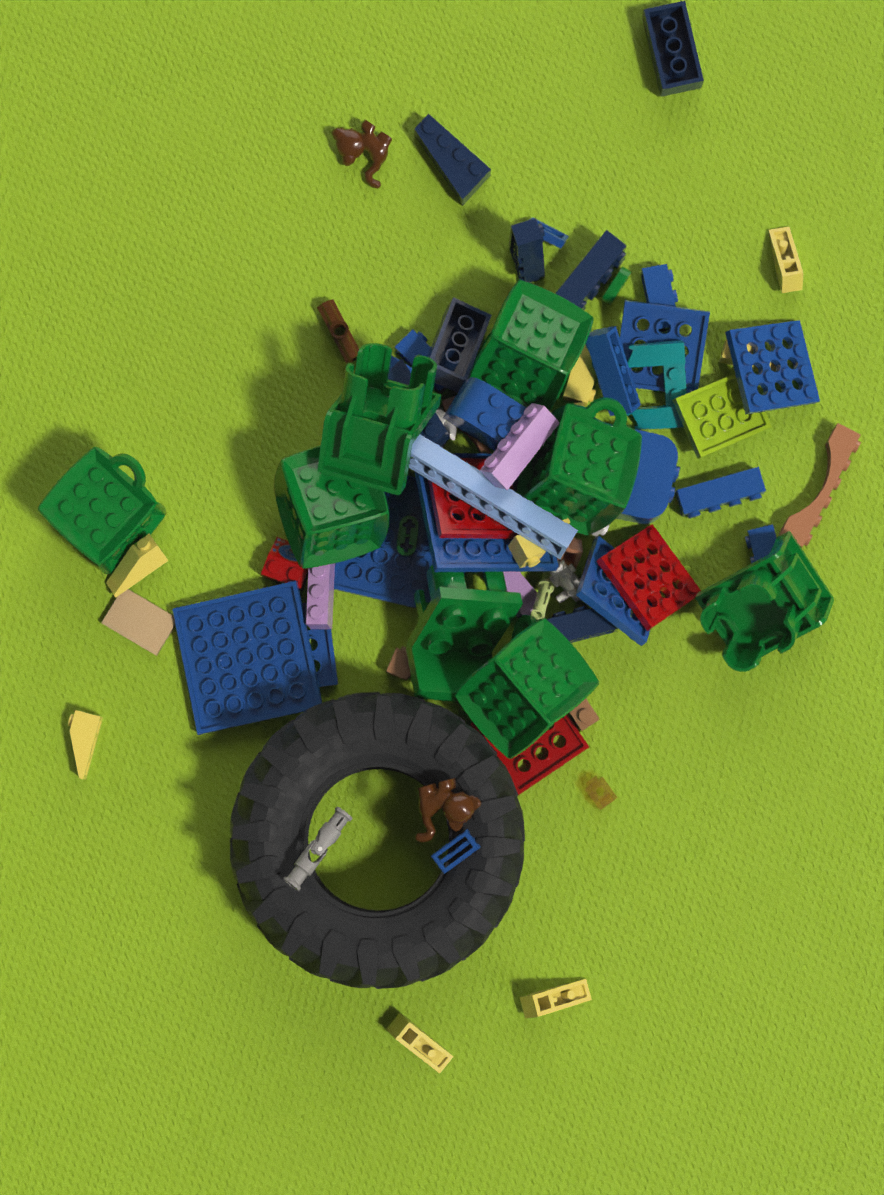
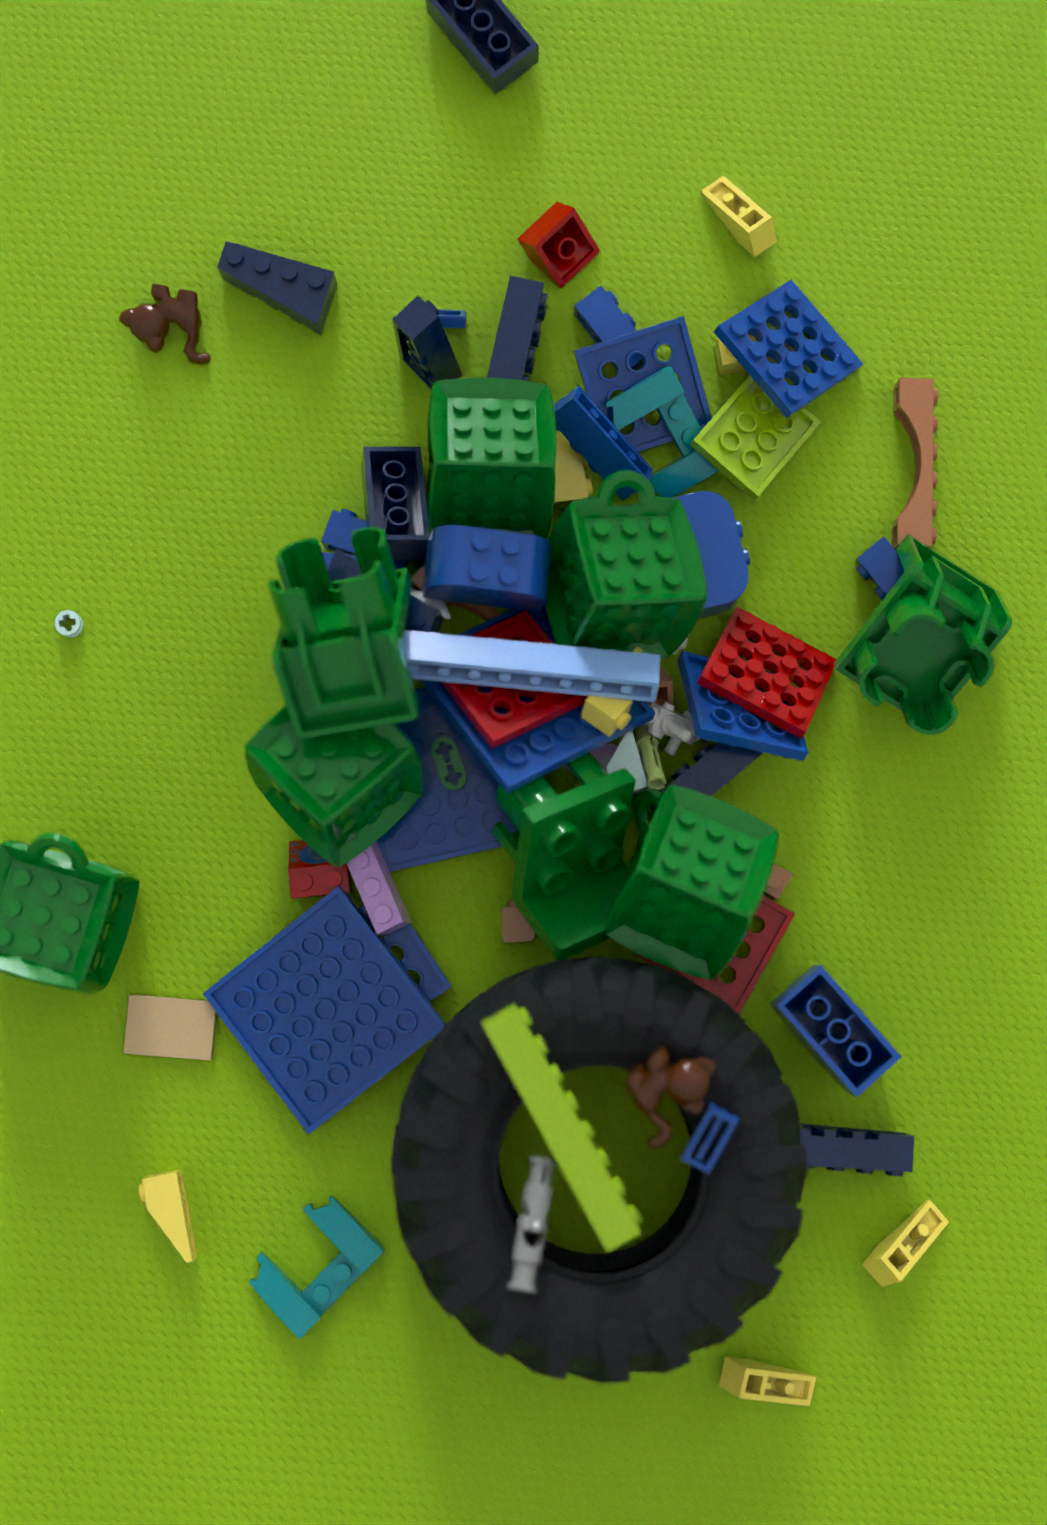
camera: 25 degrees left, 0 degrees up
(138, 562) = (132, 959): light yellow slope -> none
(190, 829) = (302, 1309): none -> teal wedge
(197, 314) = (76, 629): none -> light aqua bush
(333, 320) = (231, 546): reddish brown piece -> none
(365, 797) = (561, 1127): none -> lime brick
(519, 446) = (537, 584): lavender brick -> none
(527, 589) = (628, 757): none -> light aqua slope
(551, 919) = (857, 1149): none -> dark blue wedge
(575, 832) = (835, 1030): none -> blue brick
(600, 801) = (848, 962): clear yellow brick -> none
(616, 285) = (553, 341): green beam -> none
(653, 221) = (559, 244): none -> red slope
(719, 492) = (799, 528): blue brick -> none

